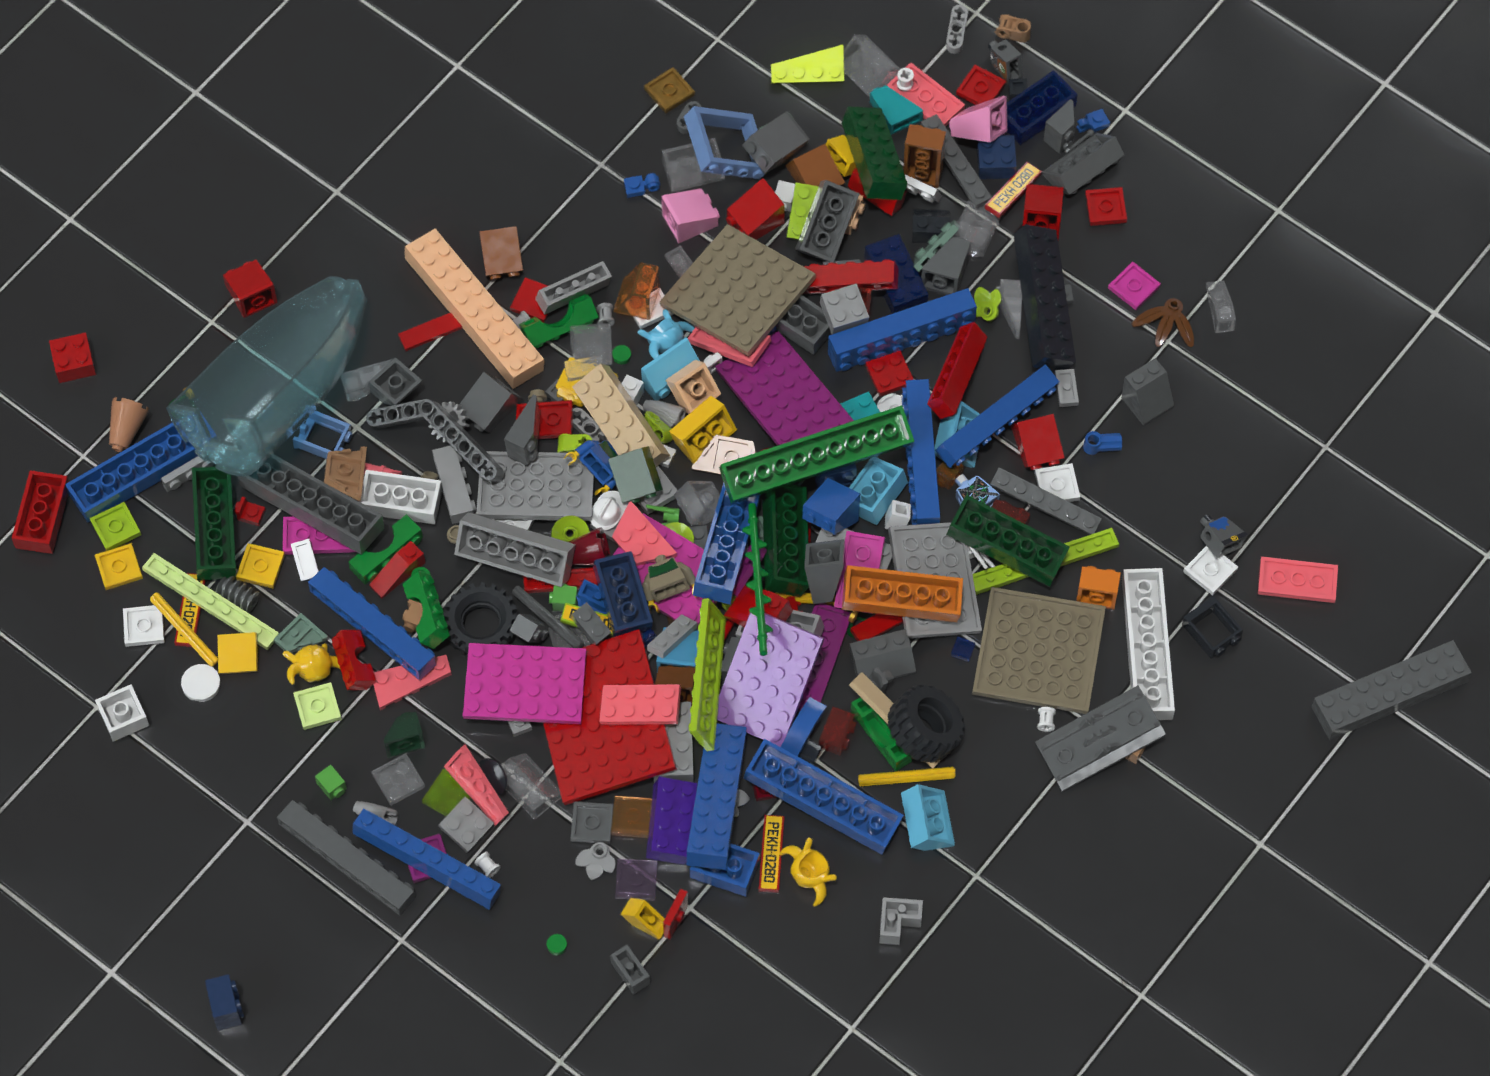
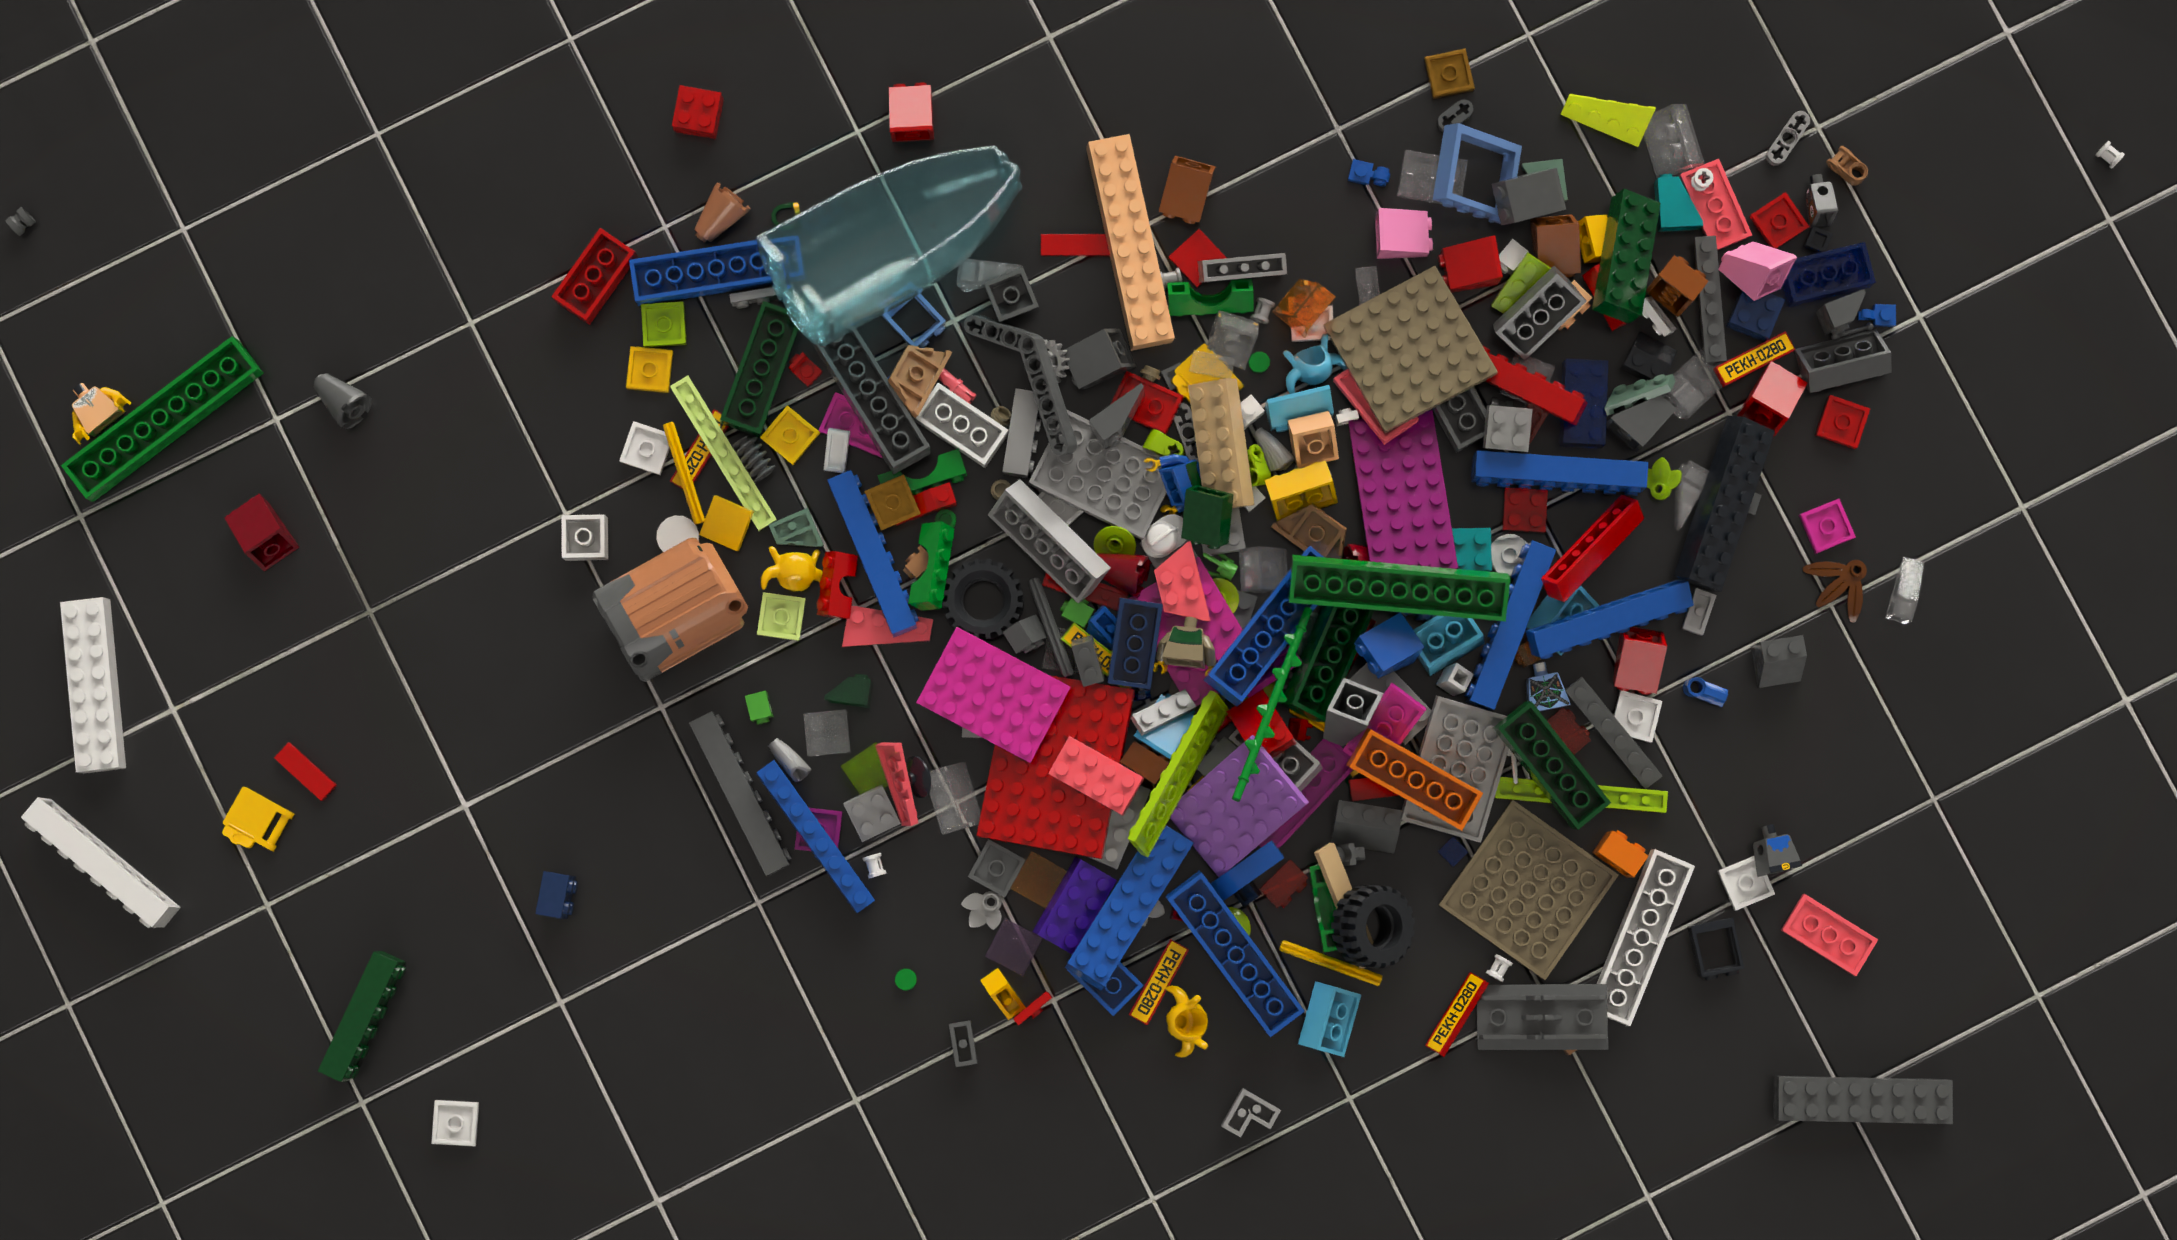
camera: 25 degrees right, 20 degrees up
(221, 726) = (671, 607): none -> nougat piece
(370, 575) = (892, 502): none -> pearl gold tile
(1030, 769) = (1457, 1014): none -> tile

